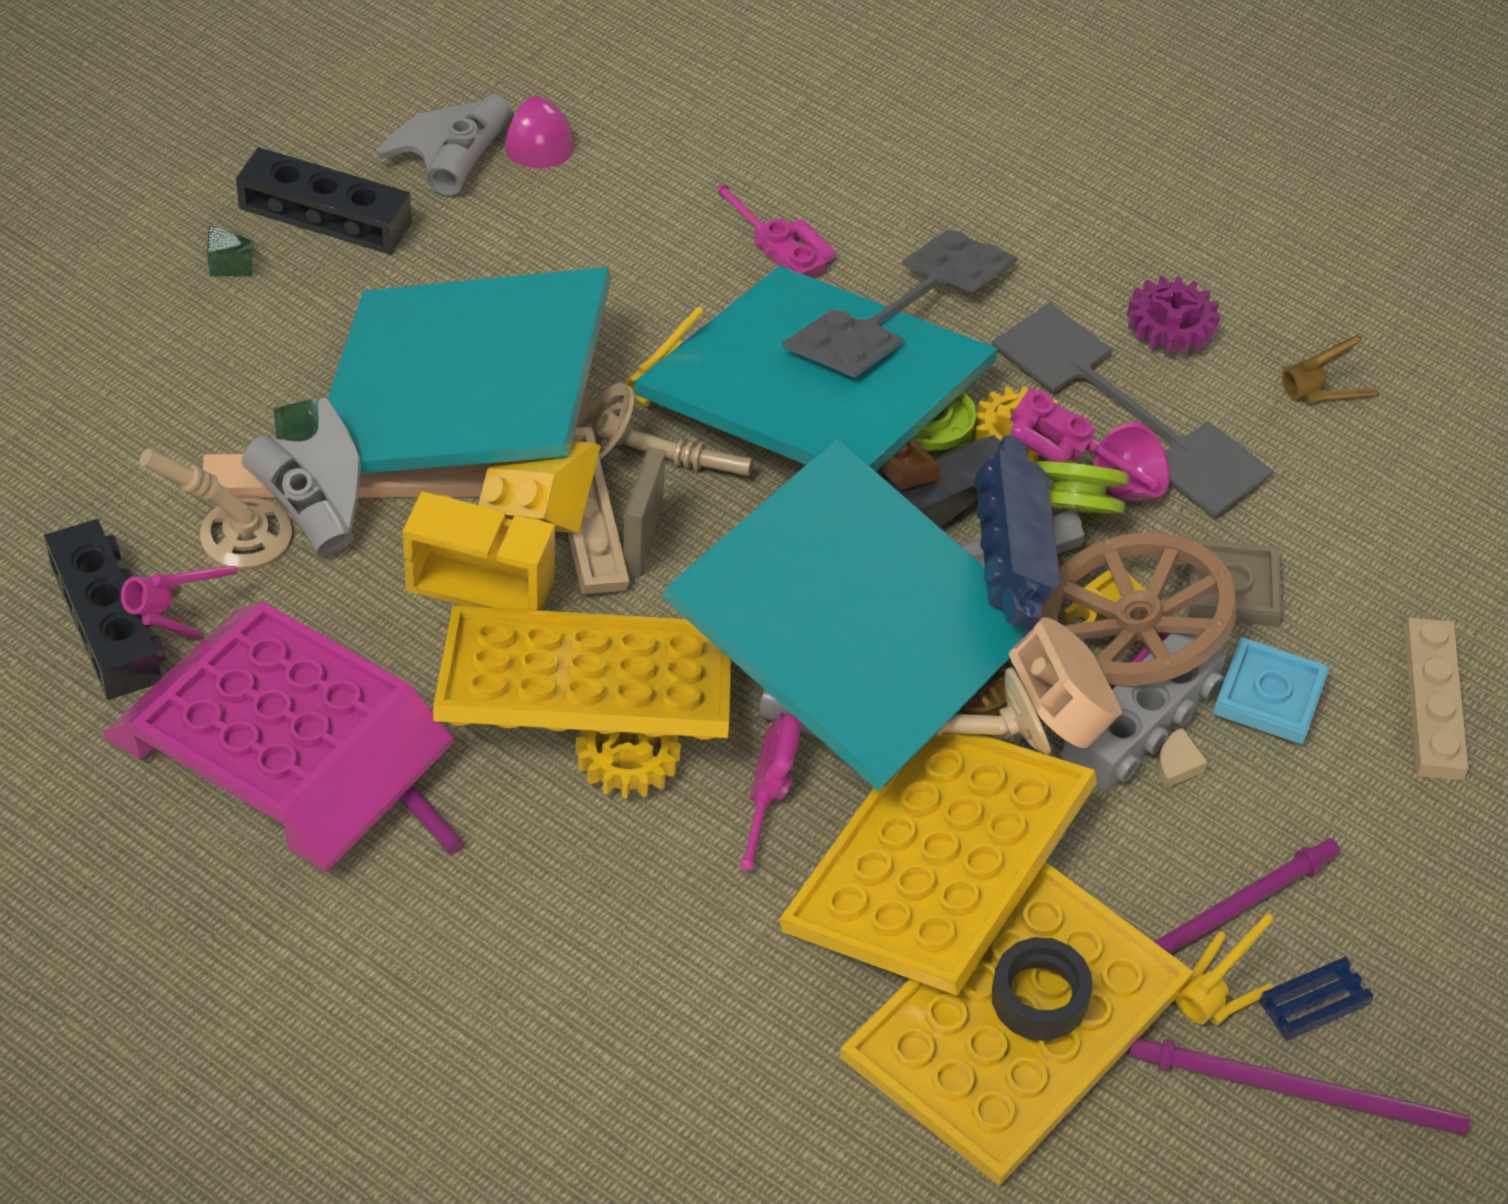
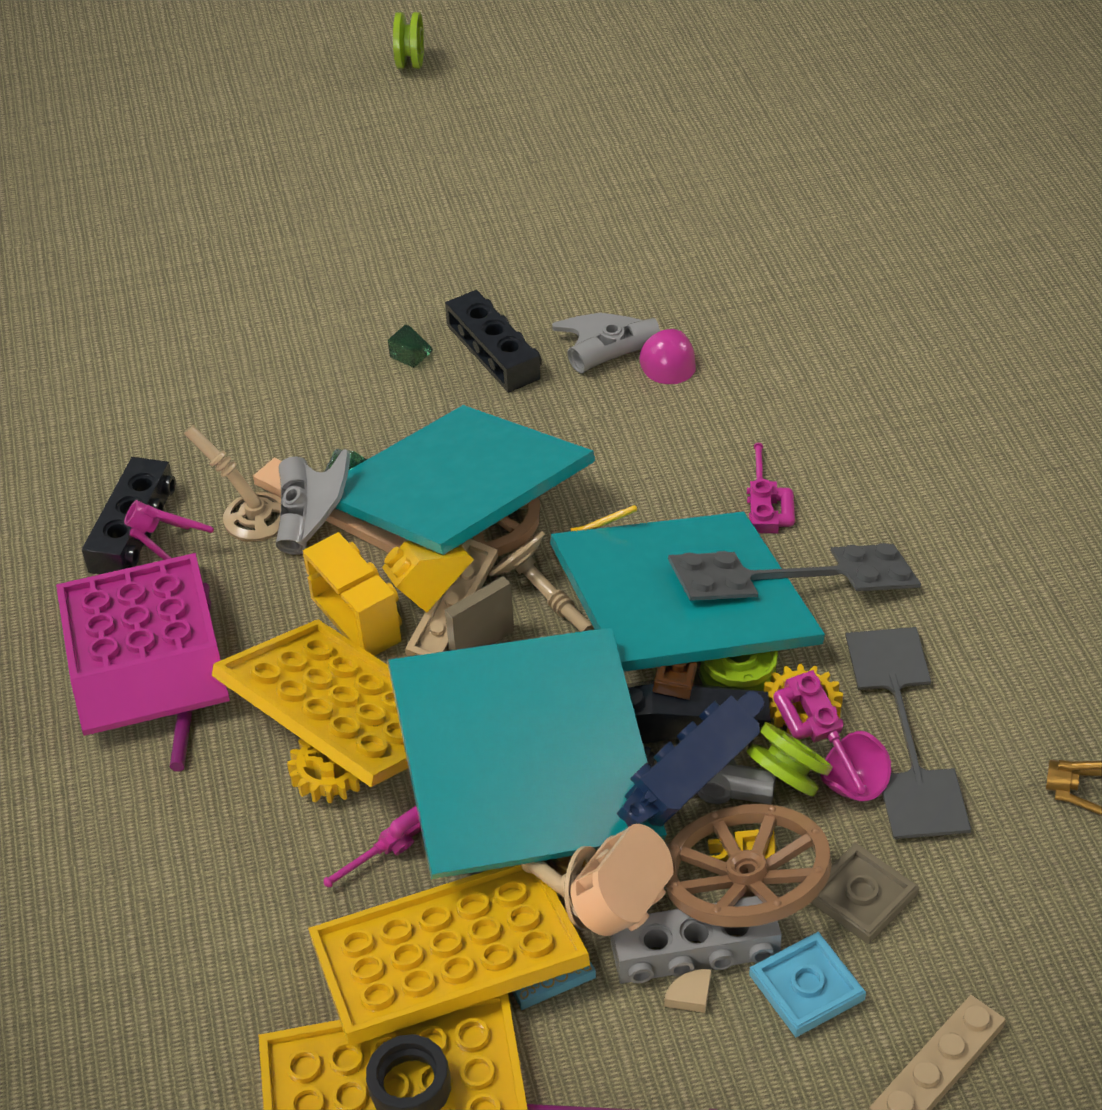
camera: 45 degrees right, 5 degrees down
(1173, 315) = (1000, 680): magenta gear -> none

